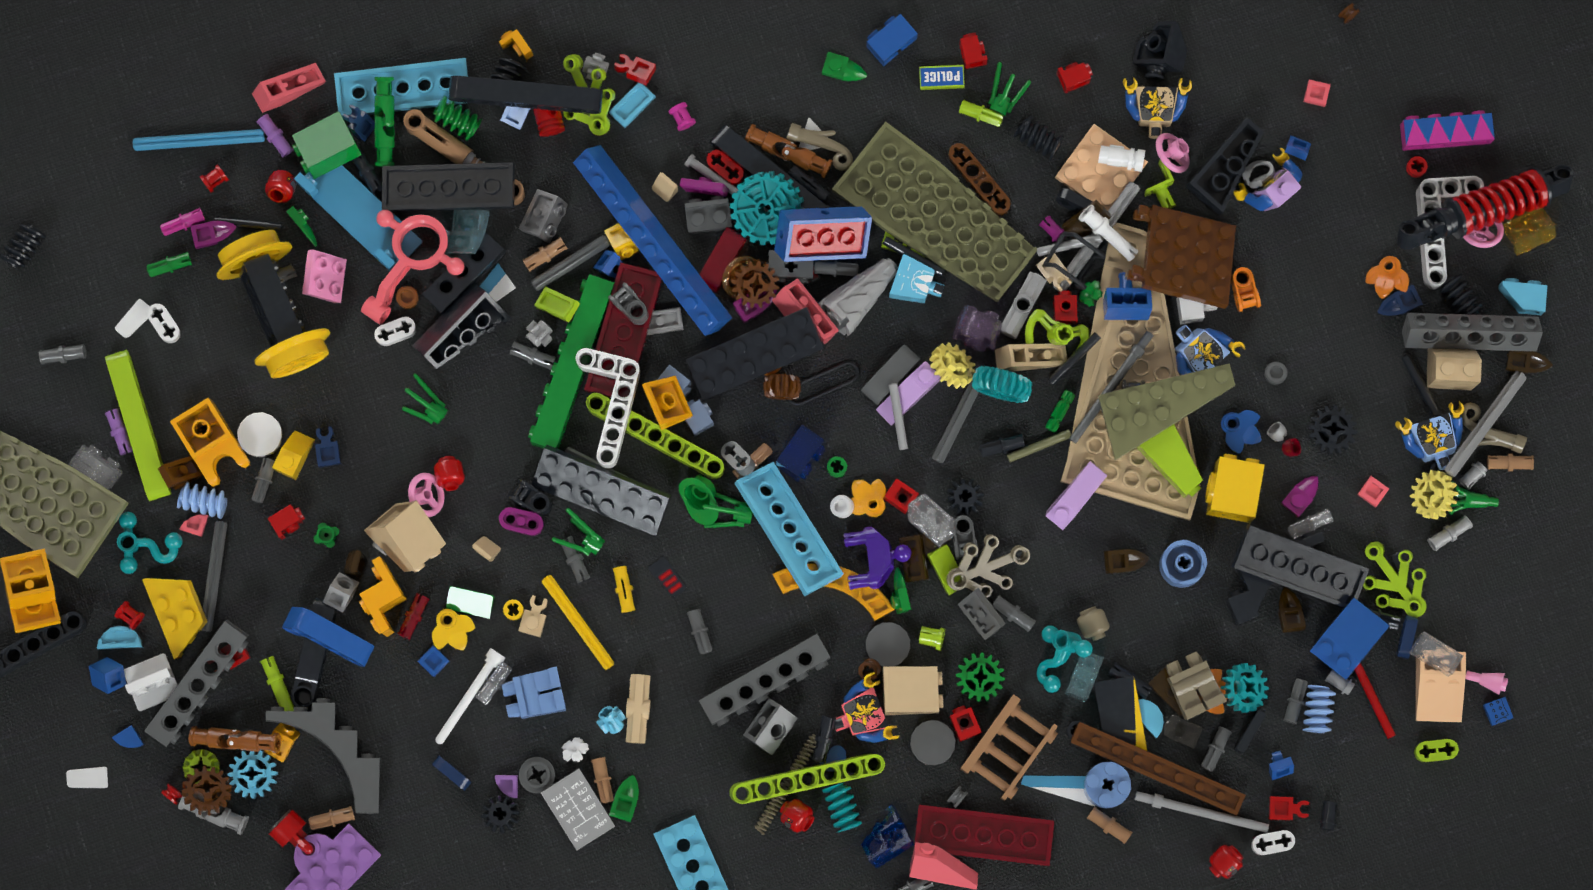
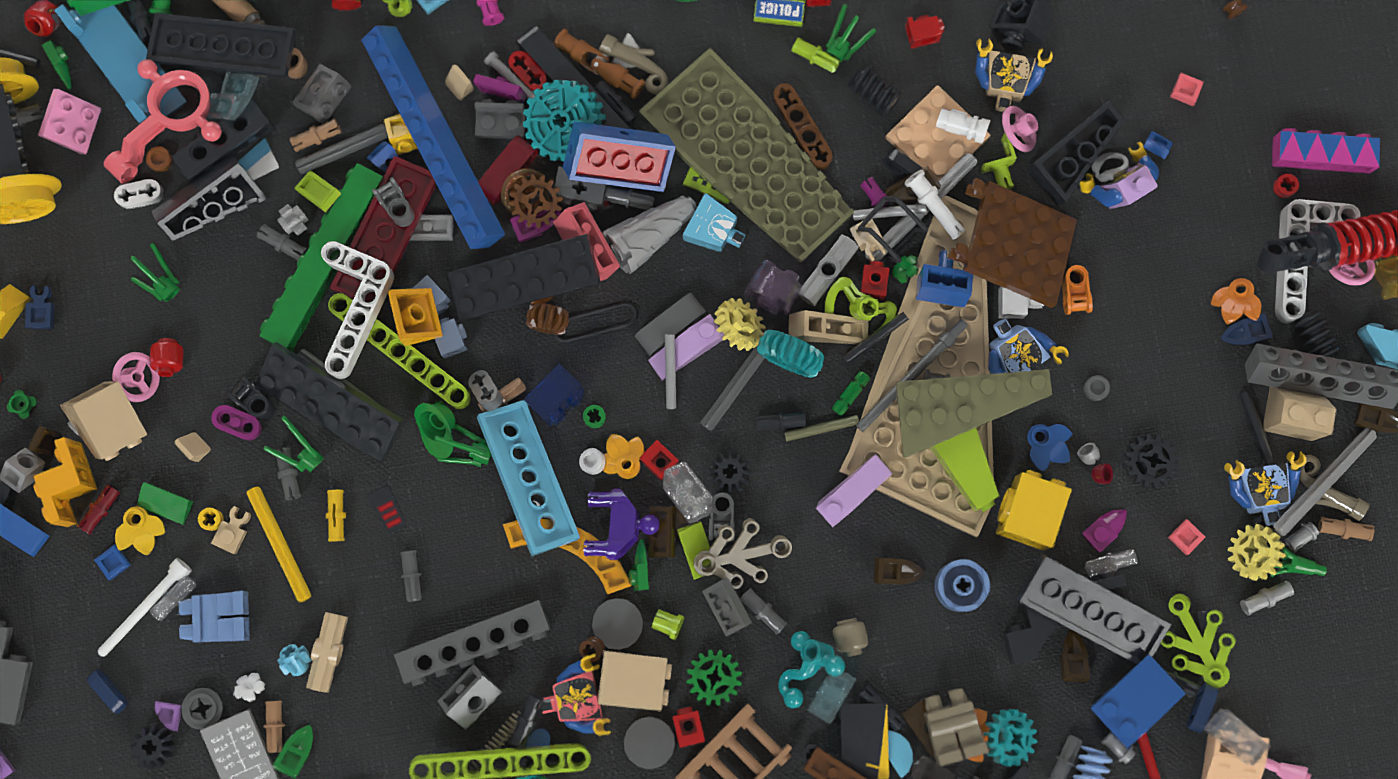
camera: 10 degrees right, 0 degrees up
(904, 250) = (705, 189): black bar -> none

